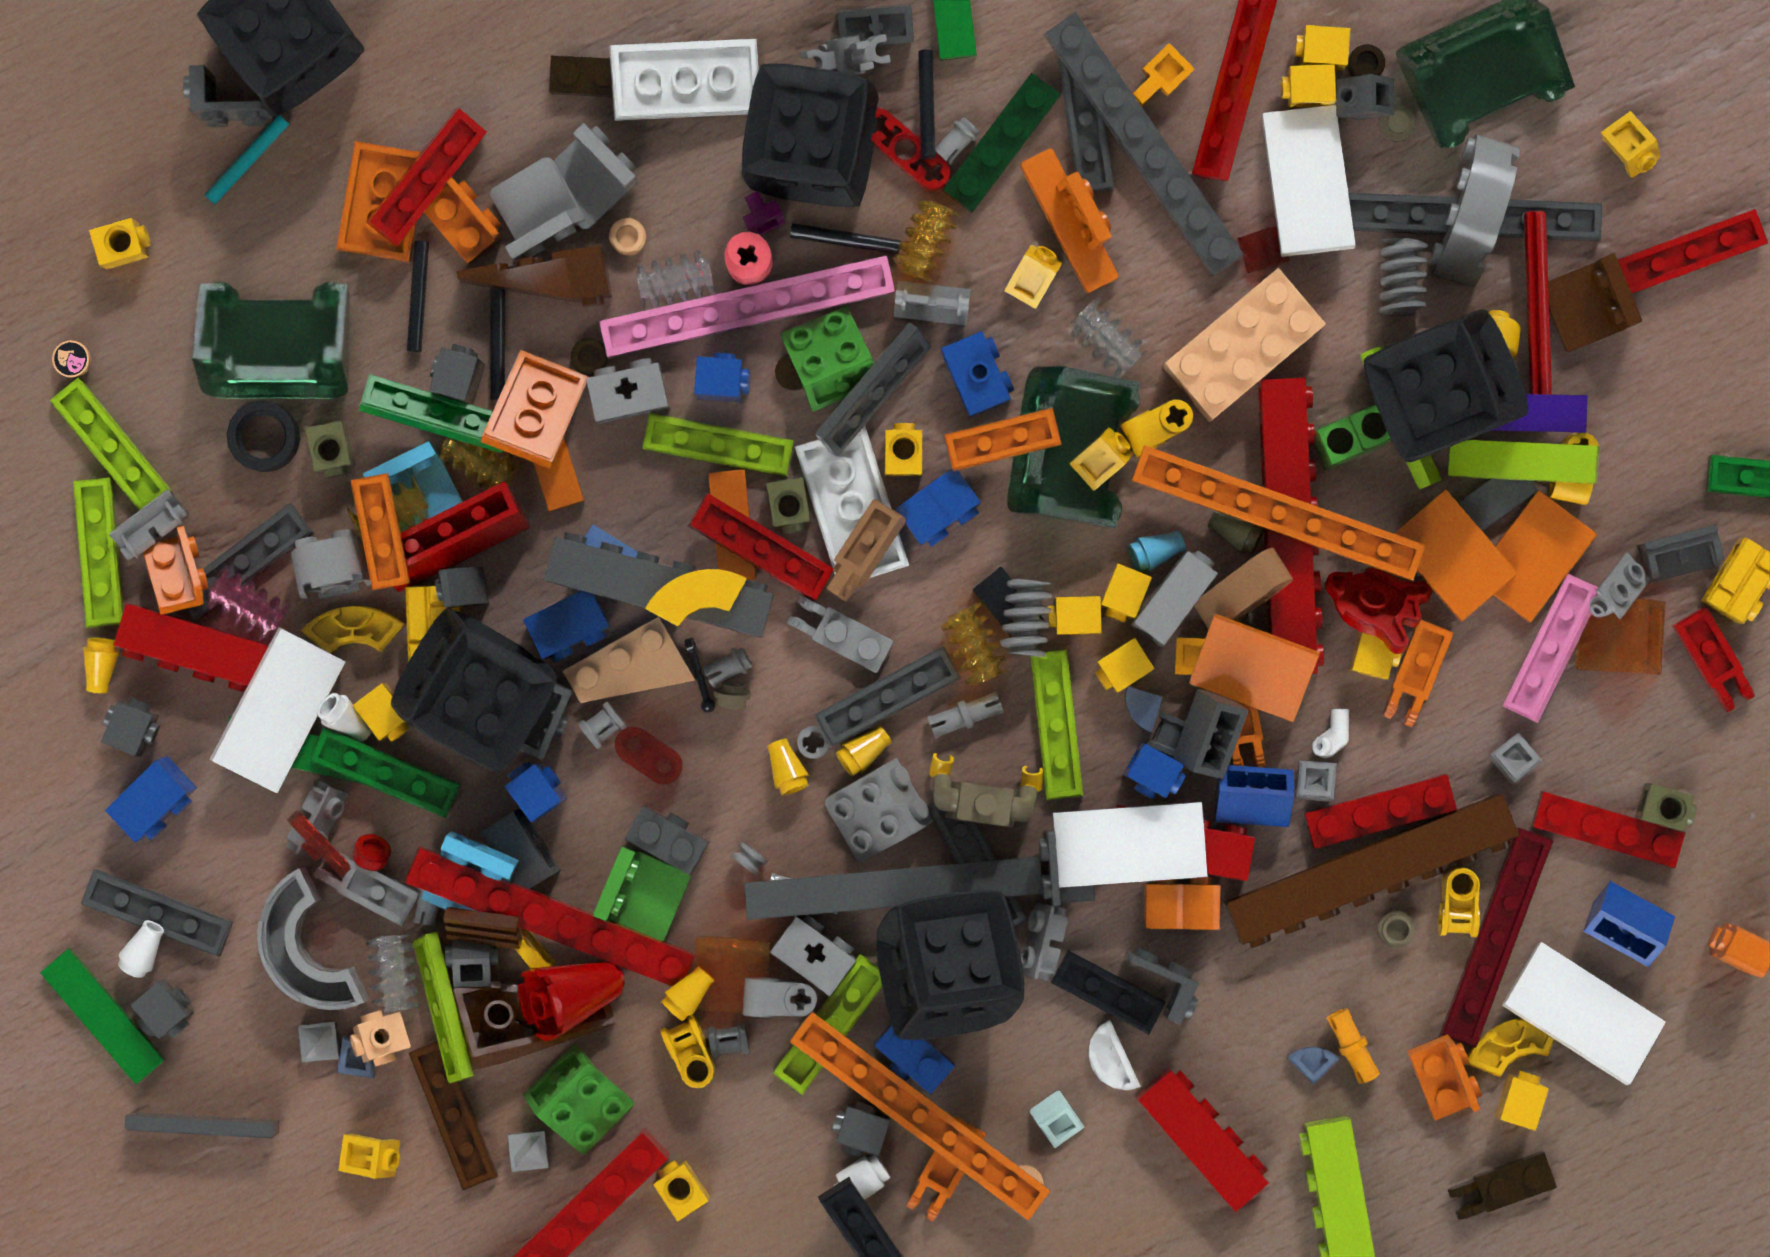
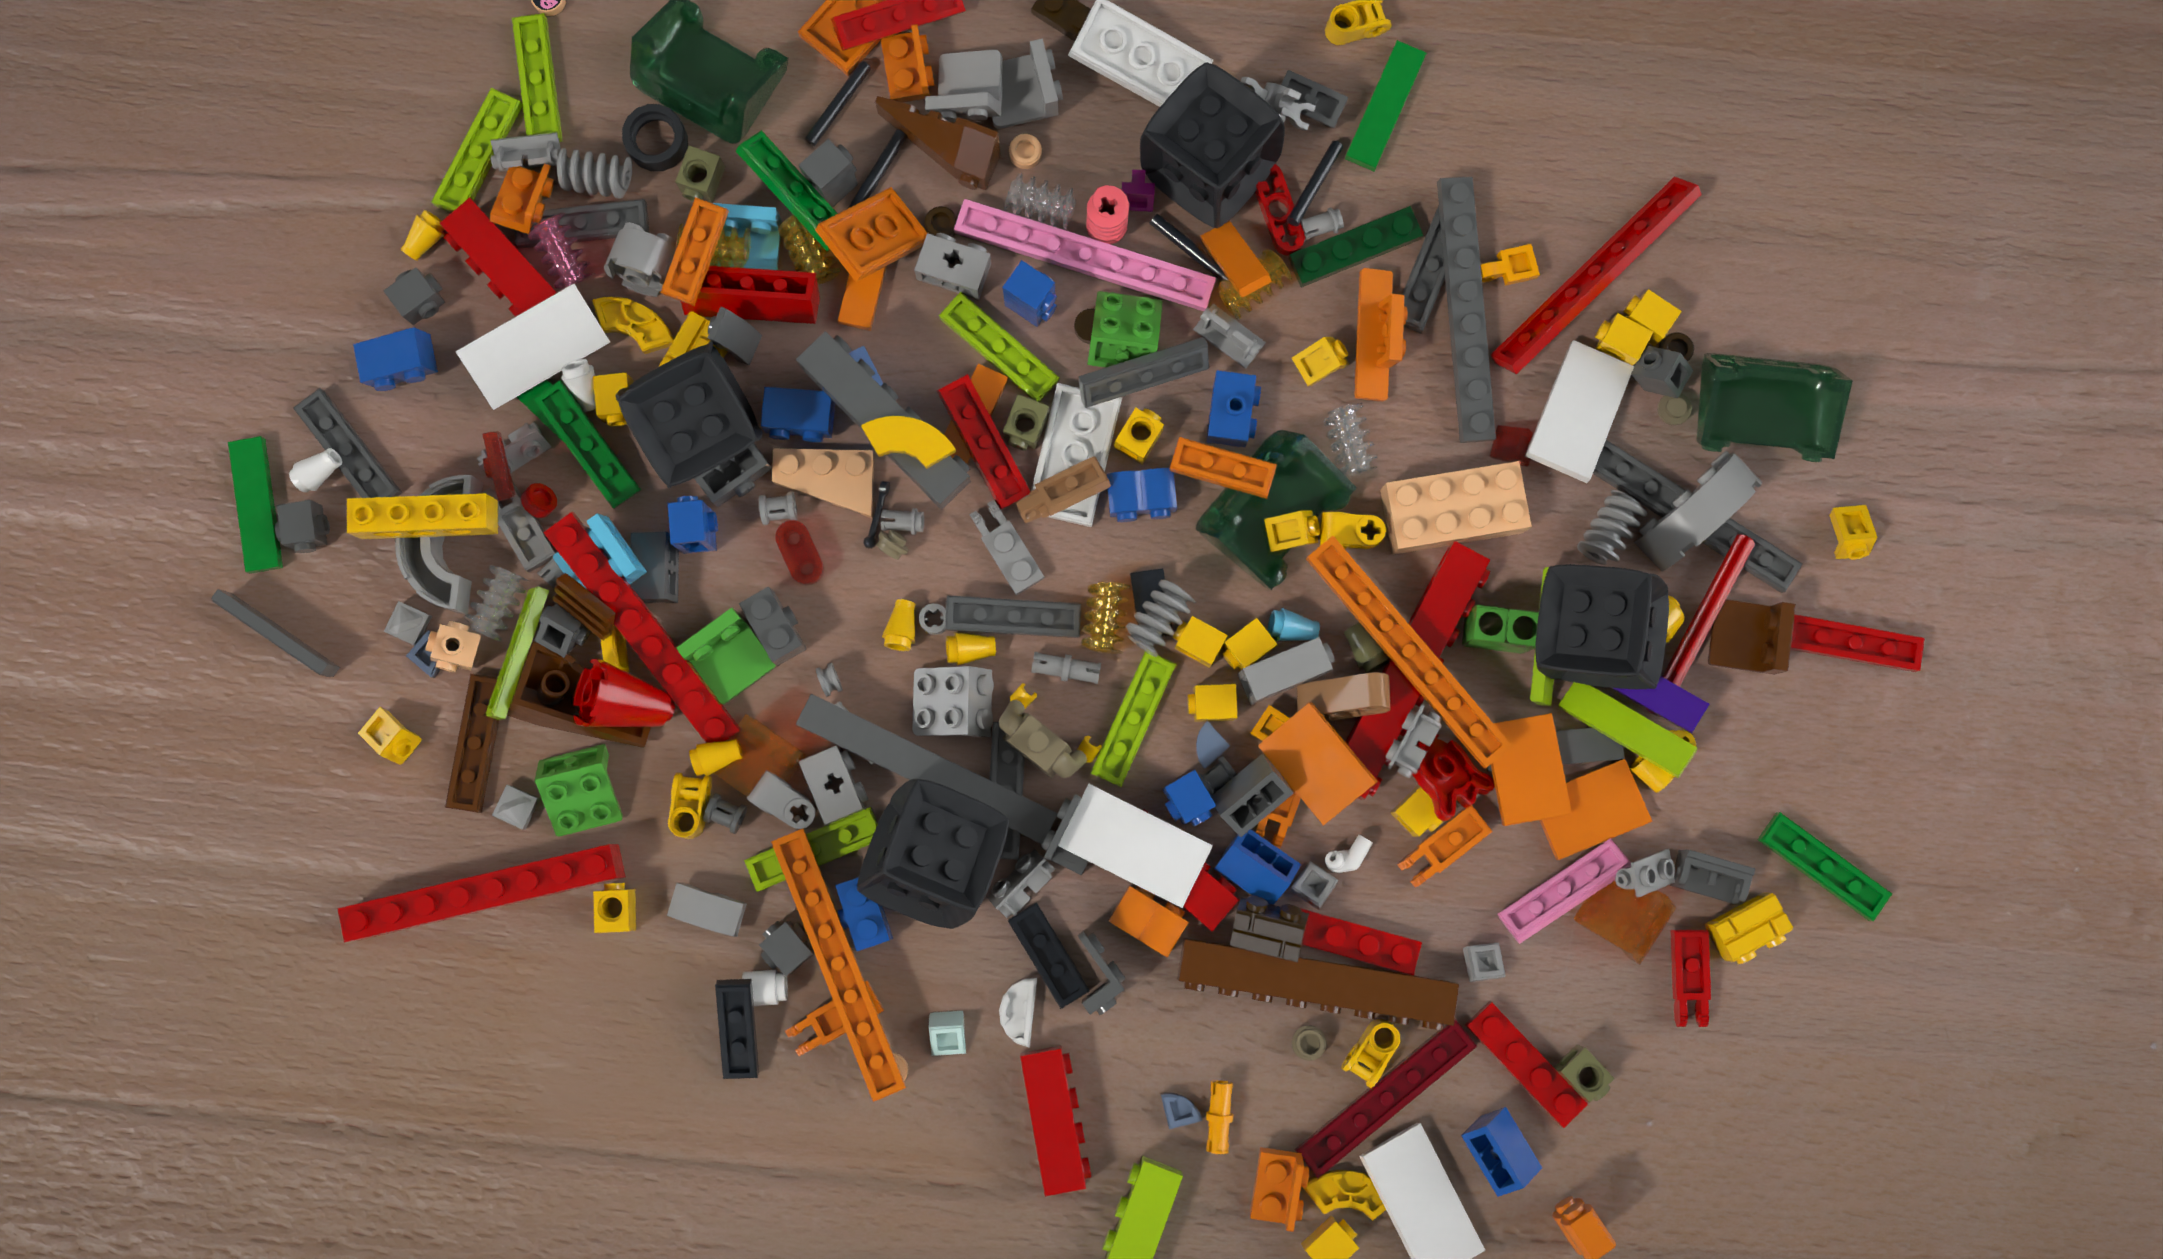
camera: 25 degrees right, 5 degrees down
(228, 508) = (593, 175): none -> light grey piece
(282, 934) = (422, 516): none -> yellow brick
(766, 1138) = (707, 909): none -> light grey slope
(896, 229) = (1236, 259): none -> orange tile
(1298, 847) = (1269, 928): none -> dark brown brick
(1331, 609) = (1418, 728): none -> light grey hinge

